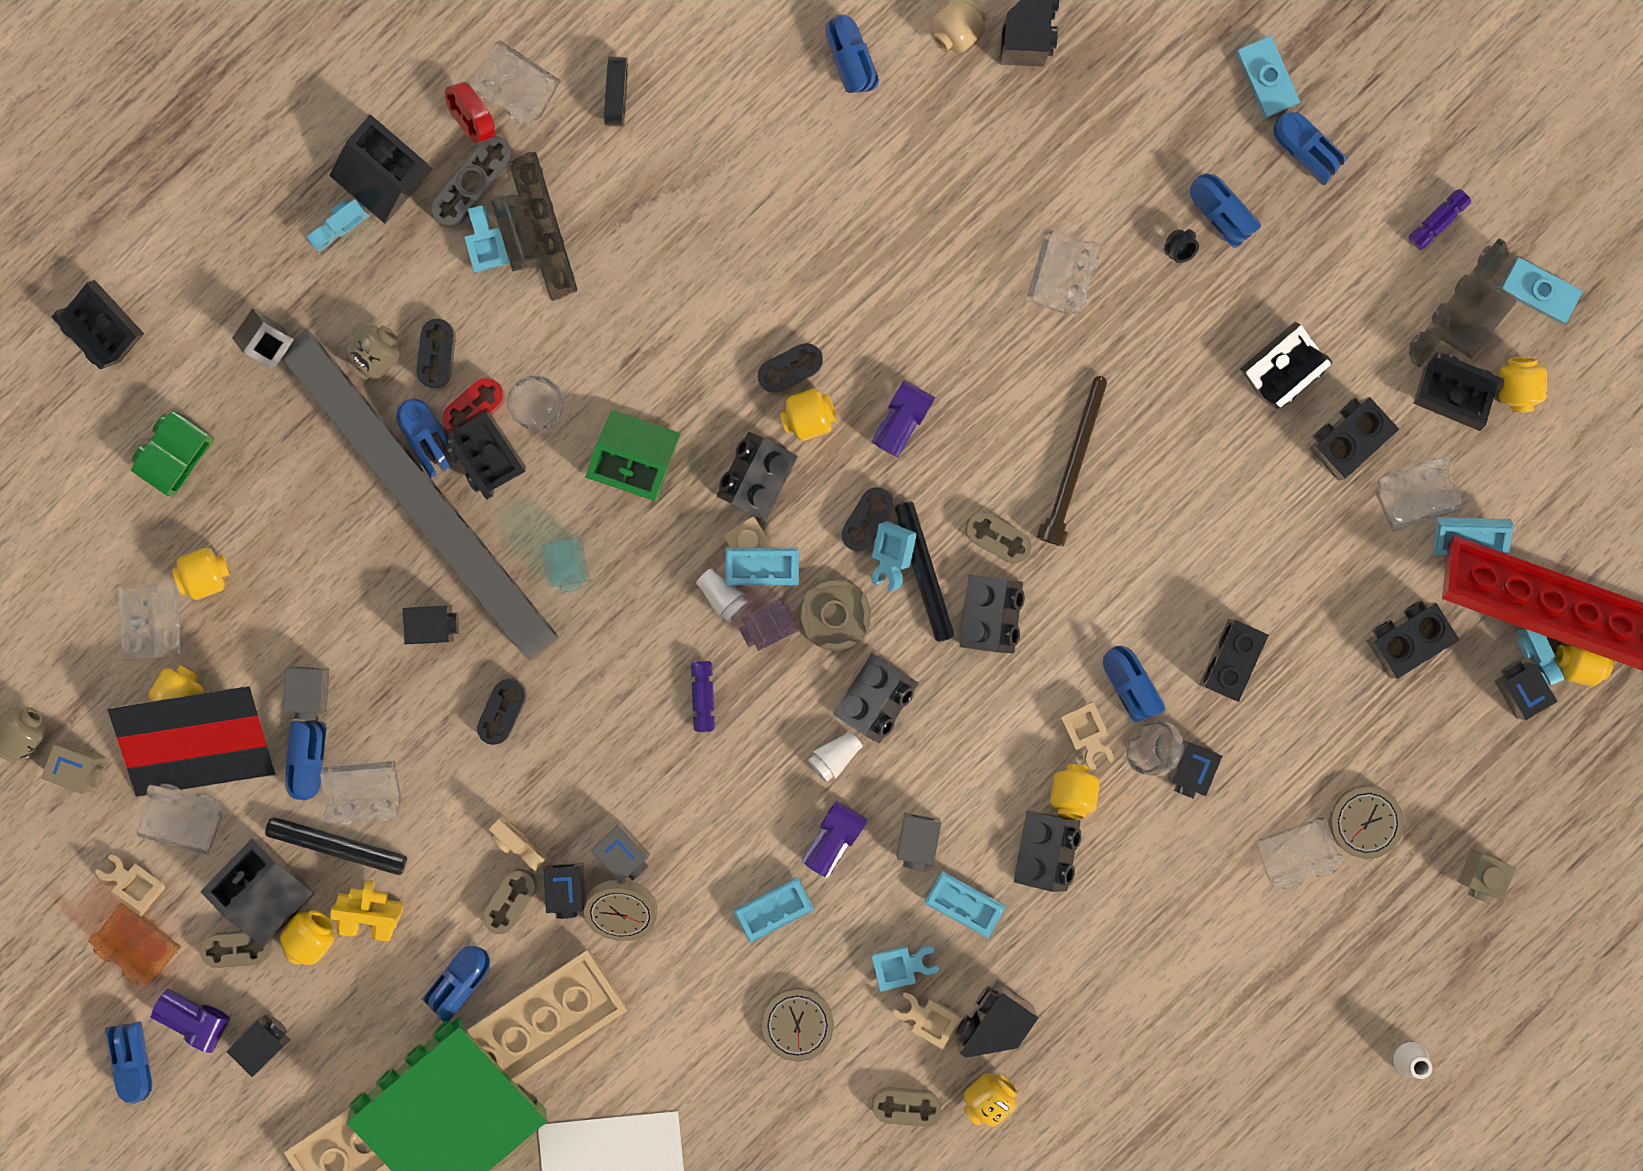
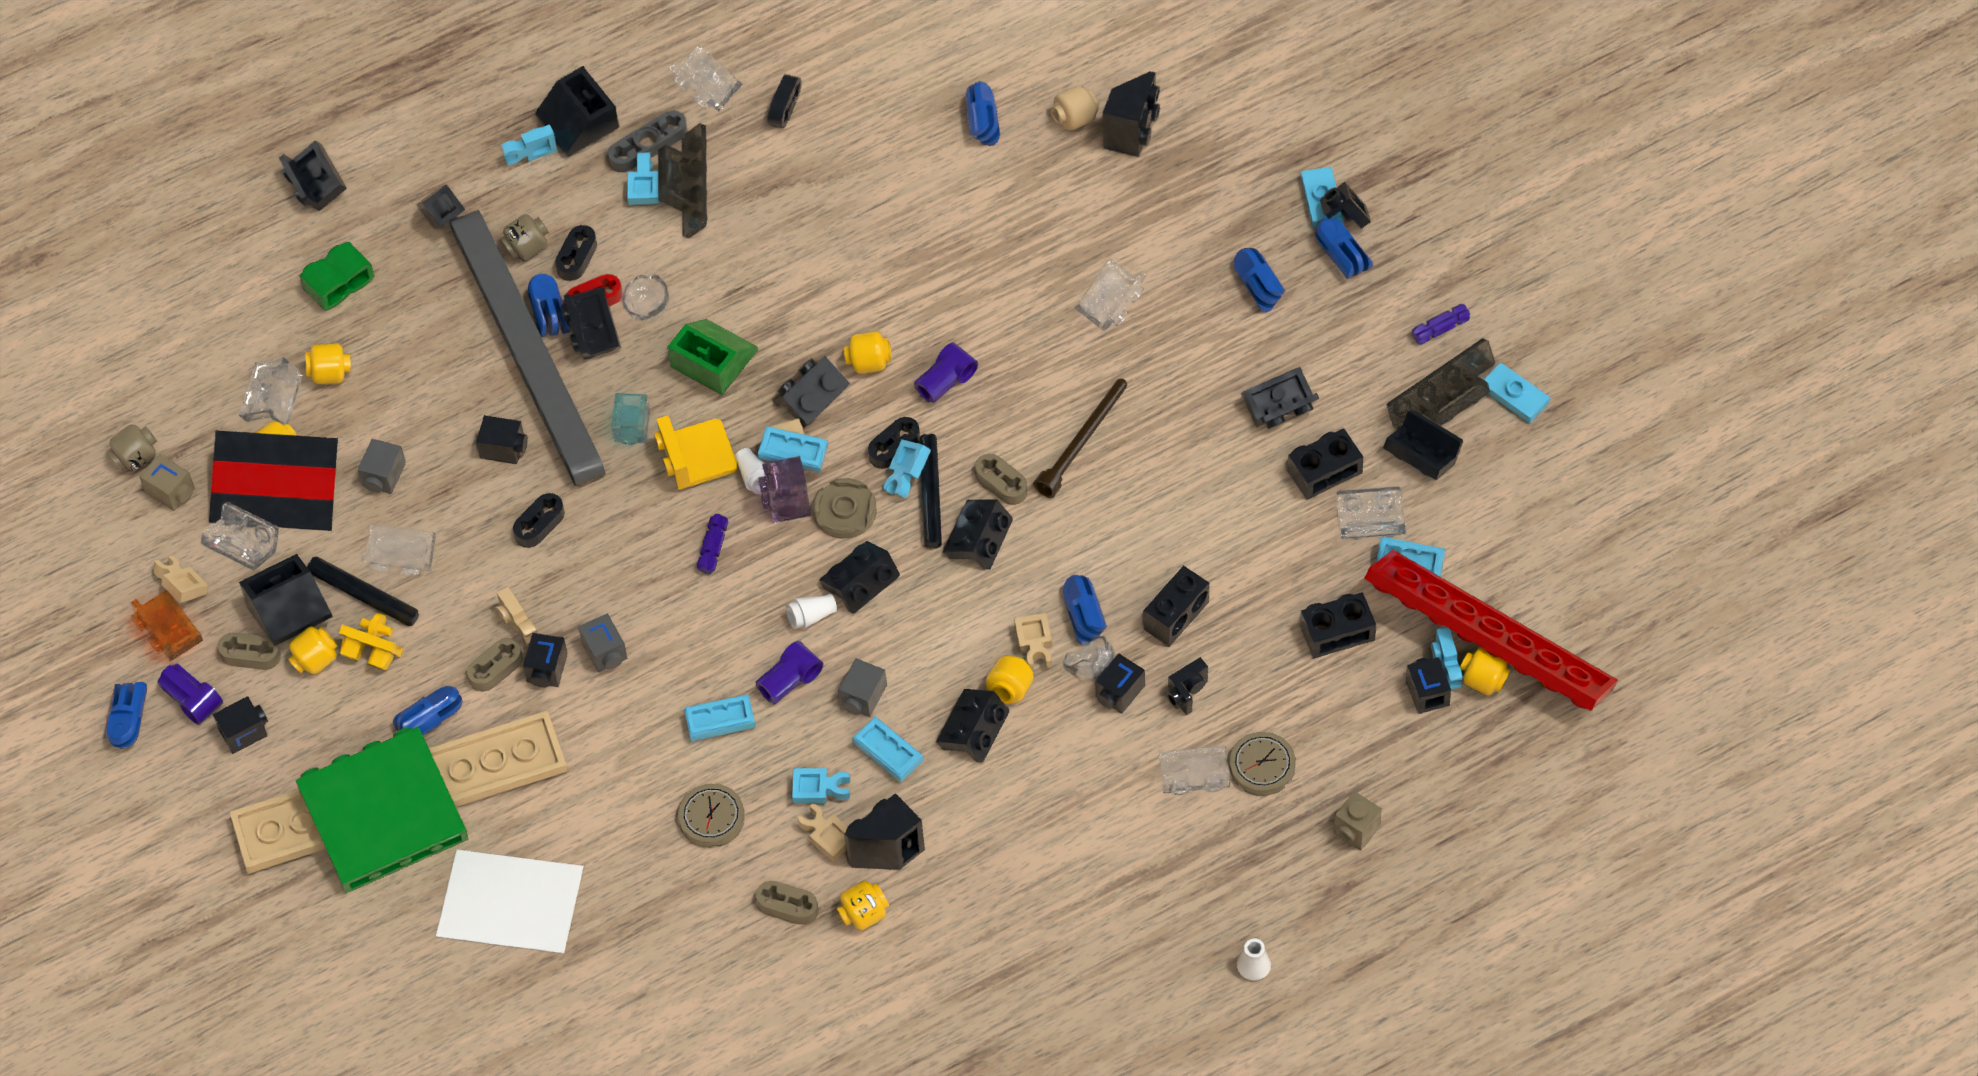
camera: 15 degrees right, 30 degrees down
(304, 758) = (362, 512): blue arm -> none
(469, 112) = (662, 88): red beam -> none
(620, 910) = (587, 683): dark tan tile -> none
(651, 587) = (695, 452): none -> yellow bracket
(786, 360) = (864, 320): black beam -> none
(1181, 245) = (1219, 303): black plate -> none
(1267, 746) = (1185, 681): none -> black bracket
(1300, 90) = (1345, 200): none -> black bracket
(1523, 384) = (1481, 452): yellow head -> none

